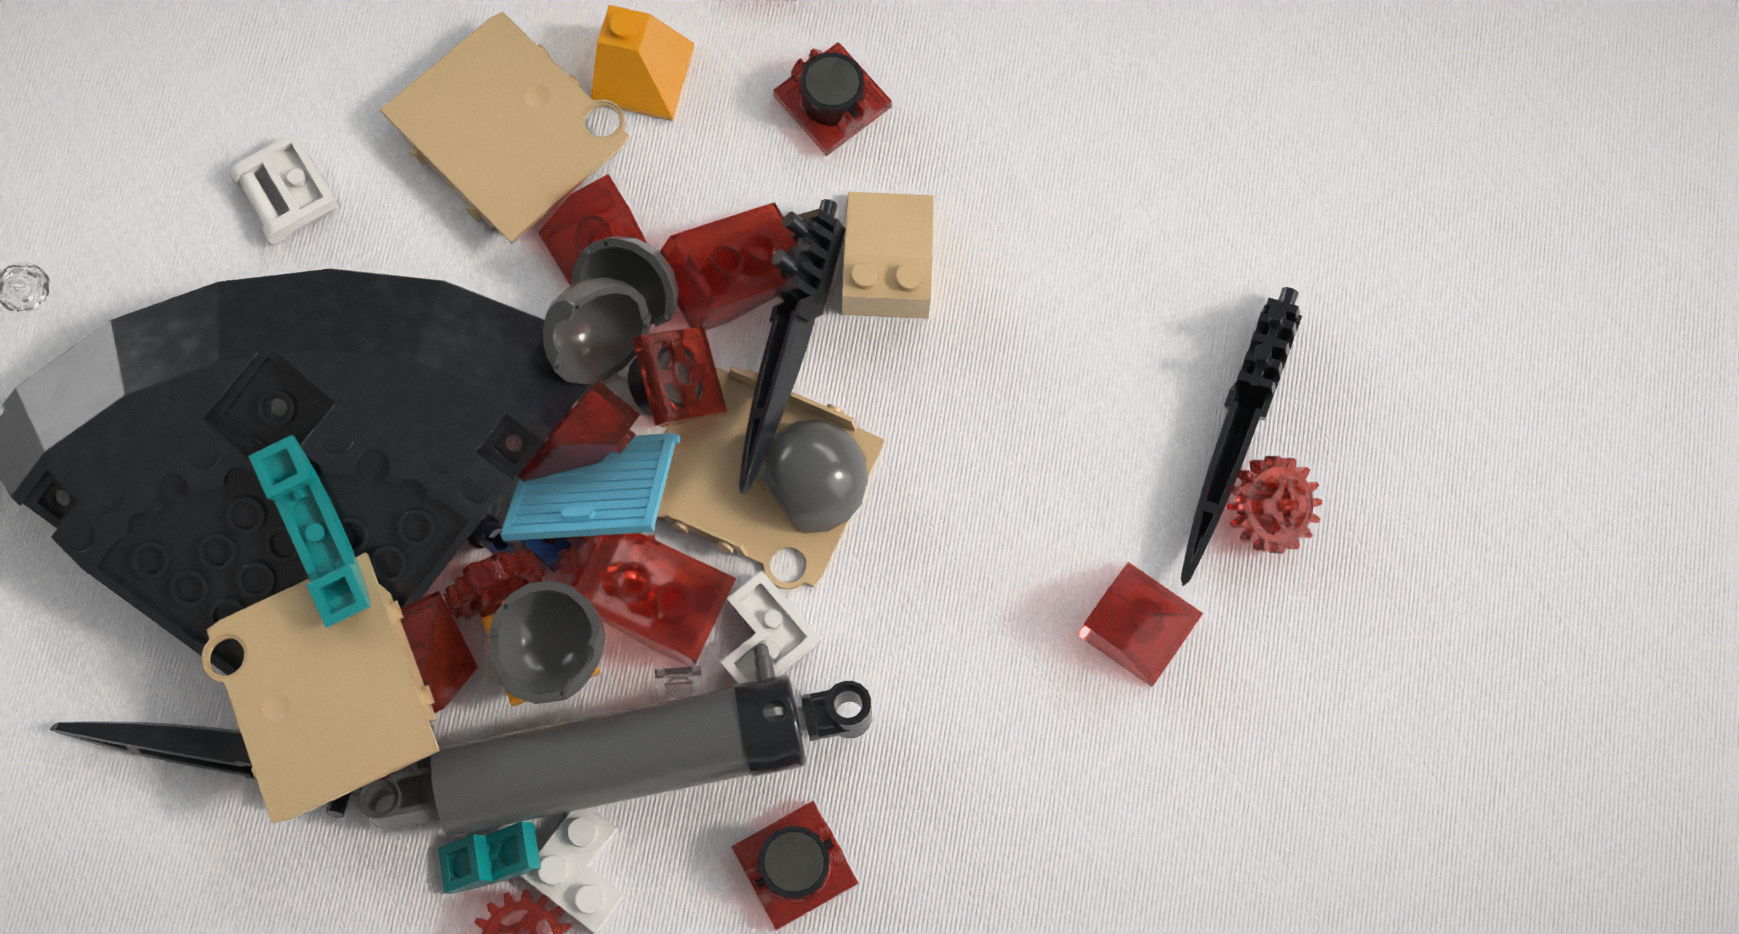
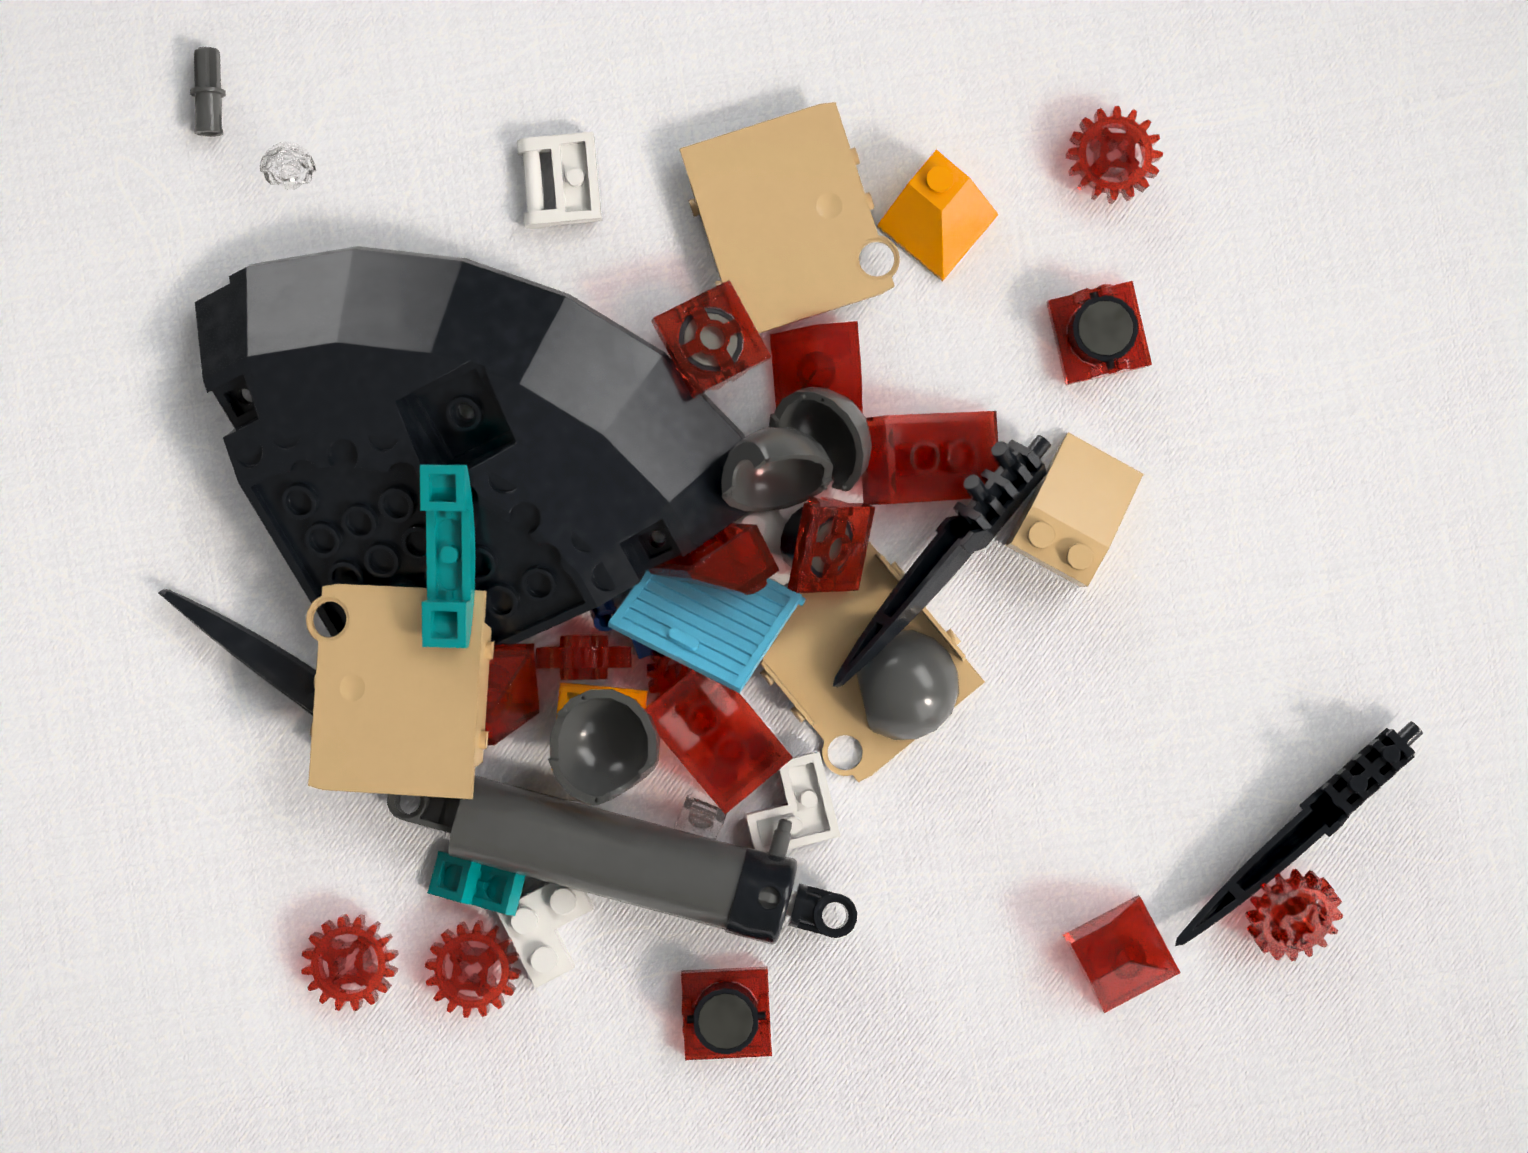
camera: 30 degrees right, 15 degrees up
(479, 250) = (709, 341): none -> clear red piece

